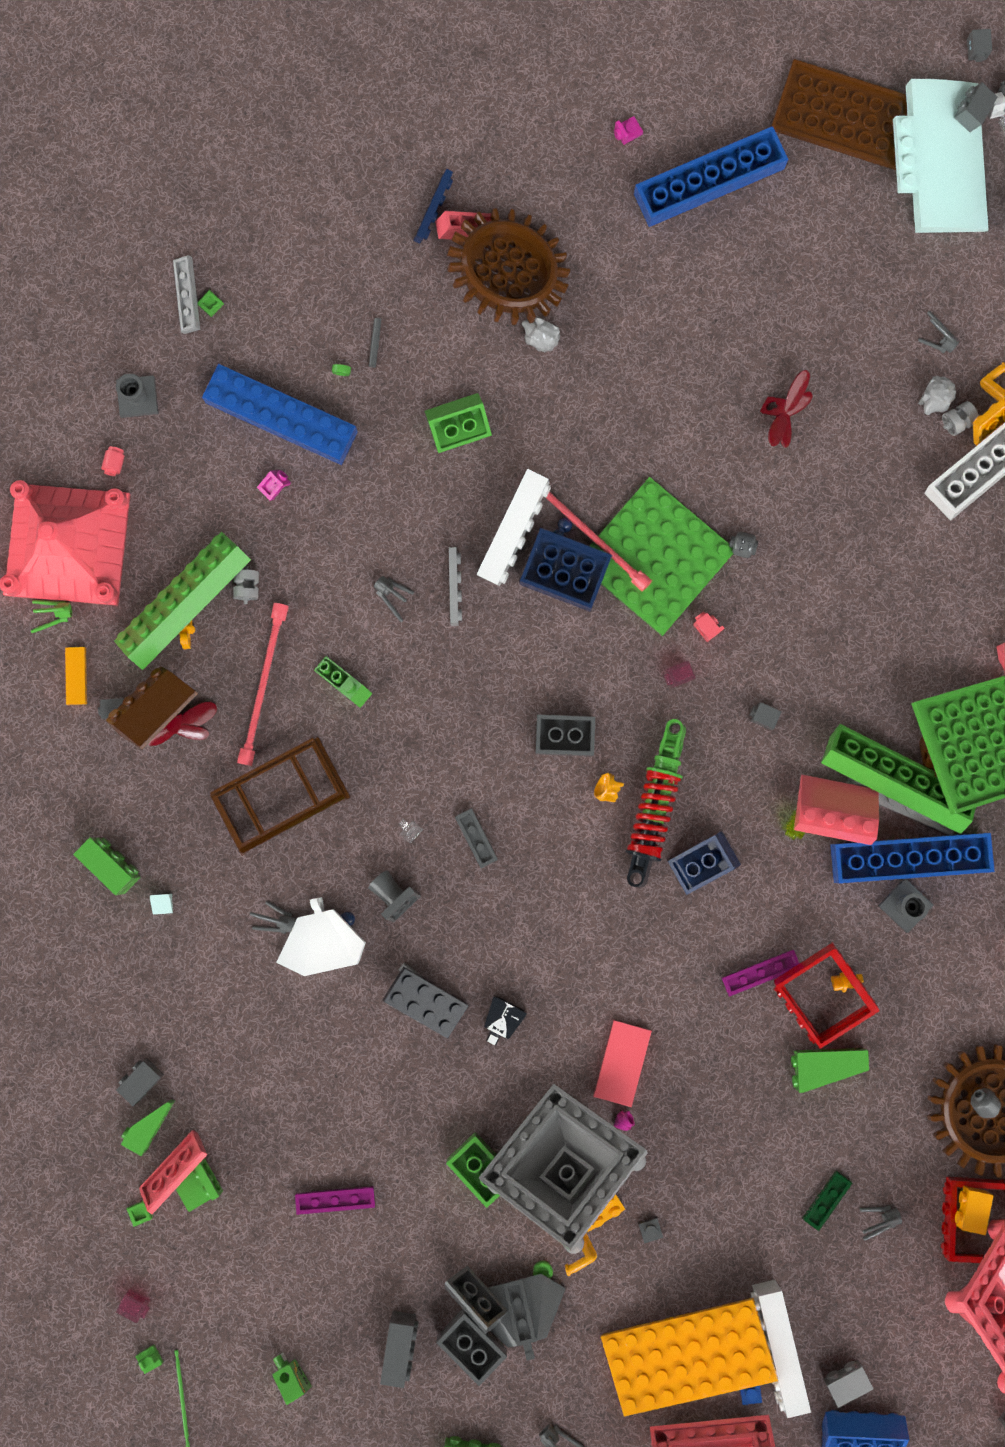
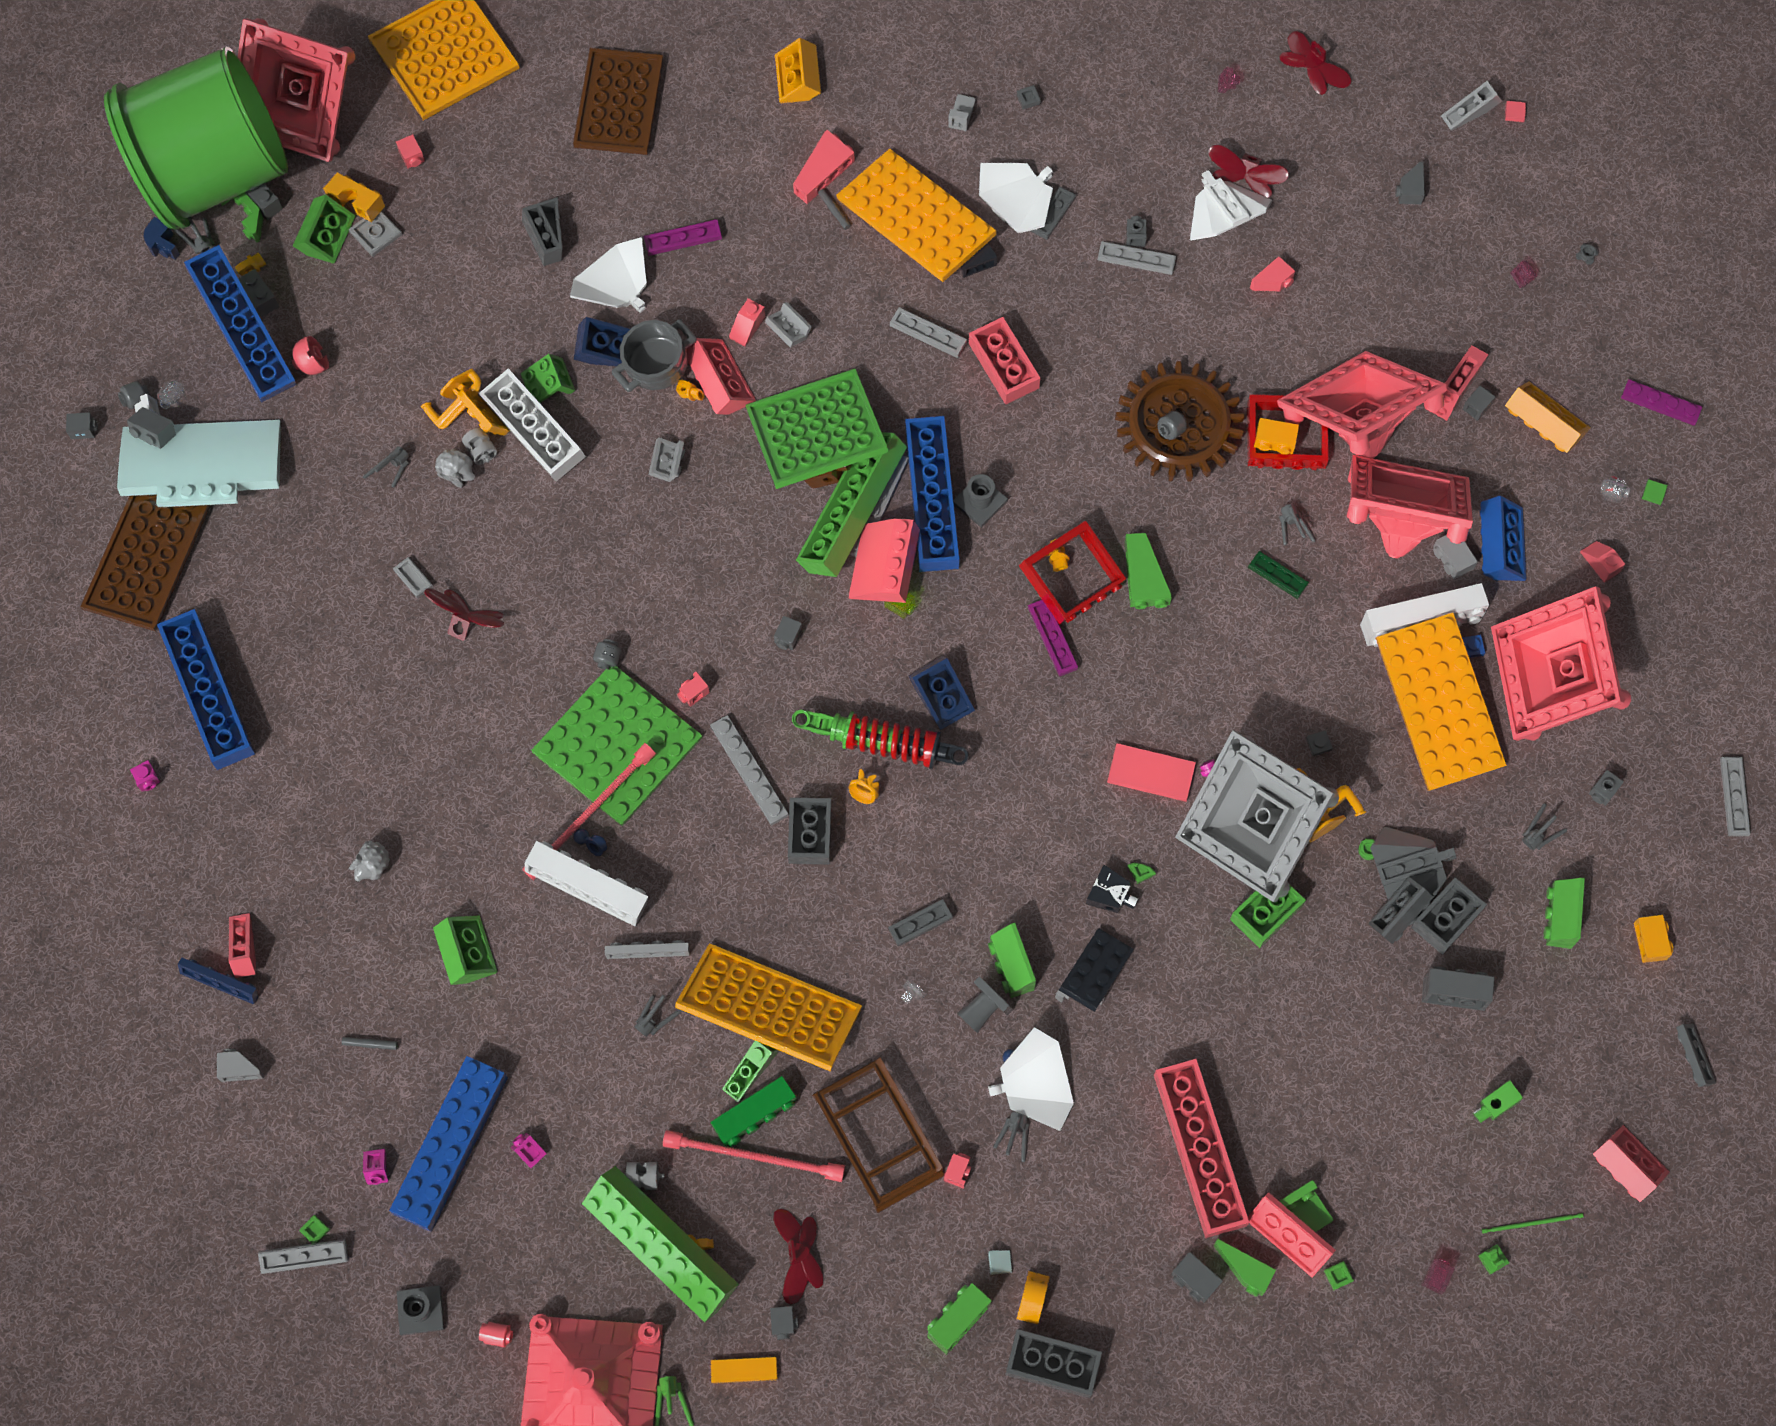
camera: 90 degrees left, 15 degrees down
(66, 949) = (1053, 1363): none -> dark grey brick
(127, 933) = (1033, 1297): none -> light orange brick
(150, 707) = (782, 1268): reddish brown slope -> none
(244, 868) = (957, 1170): none -> coral brick
(255, 1093) = (1201, 1148): none -> coral brick
(262, 351) = (375, 1167): none -> dark pink bracket
(302, 684) = (754, 1111): none -> green brick
(335, 1200) = (1310, 1063): magenta plate -> none
(341, 370) = (400, 1077): bright green tile -> none
(354, 227) = (235, 1067): none -> light grey slope
(395, 697) = (769, 1006): none -> light orange plate
(434, 923) = (1012, 961): none -> bright green slope
(497, 237) = (291, 865): reddish brown gear -> none
(523, 1048) = (1141, 872): none -> bright green tile
(565, 569) = (631, 832): dark blue slope -> none
(628, 679) = (749, 770): none -> light grey plate
(679, 674) = (744, 717): clear pink brick -> none
(824, 362) = (412, 577): none -> light grey tile
(899, 1347) = (1408, 503): none -> coral piece
(947, 598) = (666, 459): none -> light grey bracket

